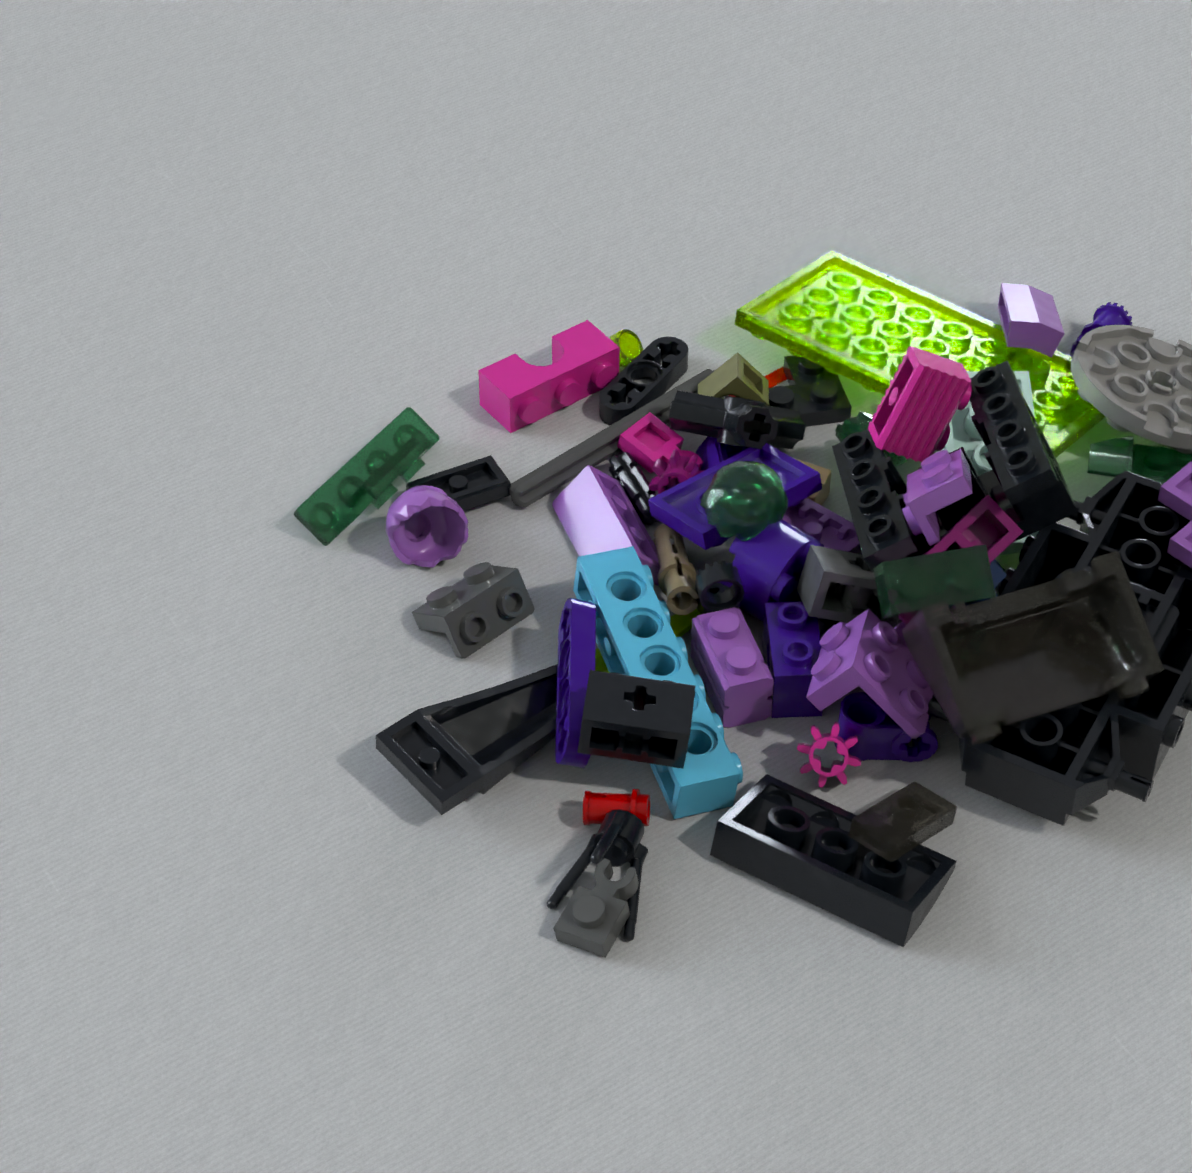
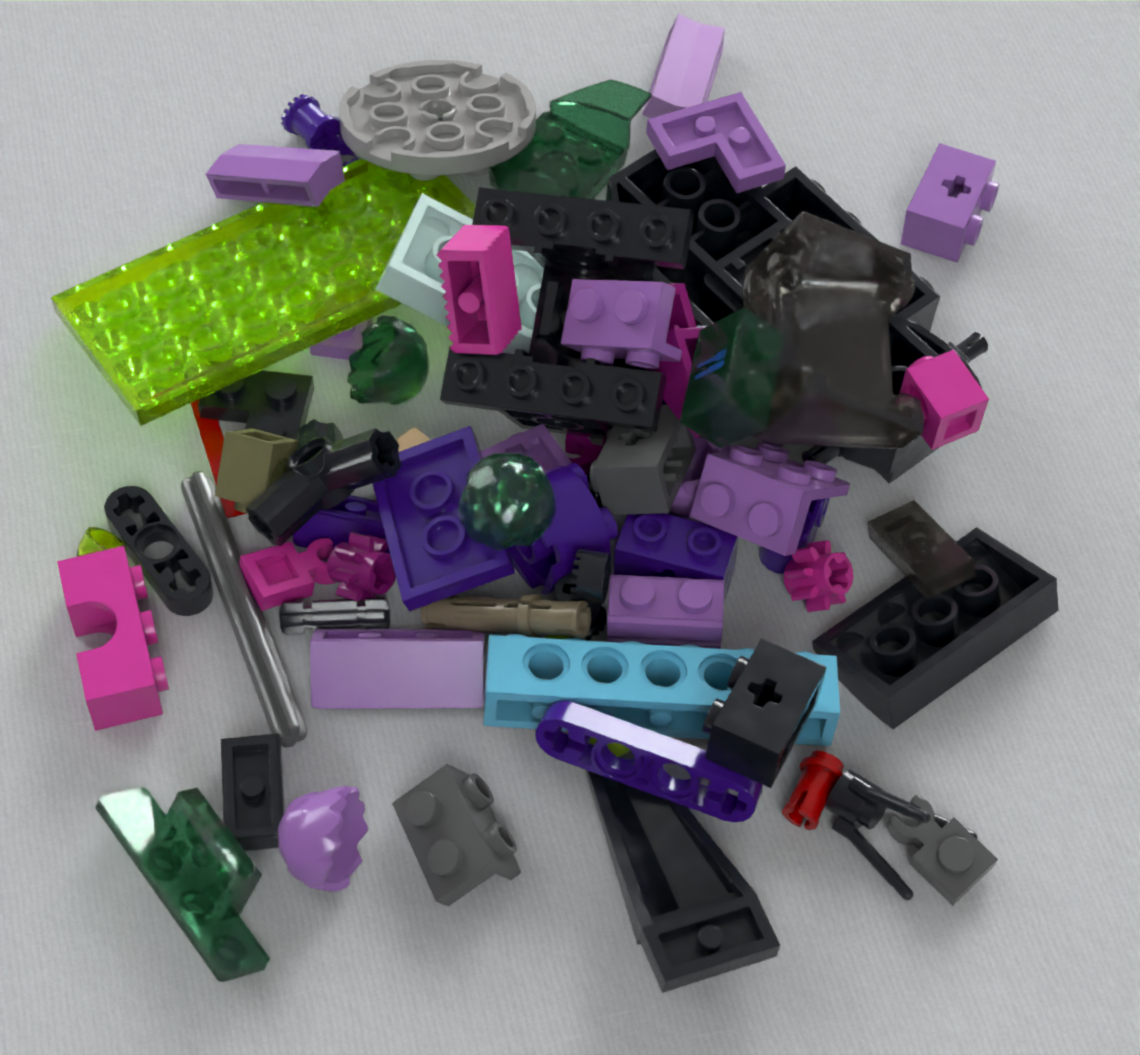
camera: 70 degrees left, 10 degrees up
(1025, 747) = (948, 398): none -> dark pink brick

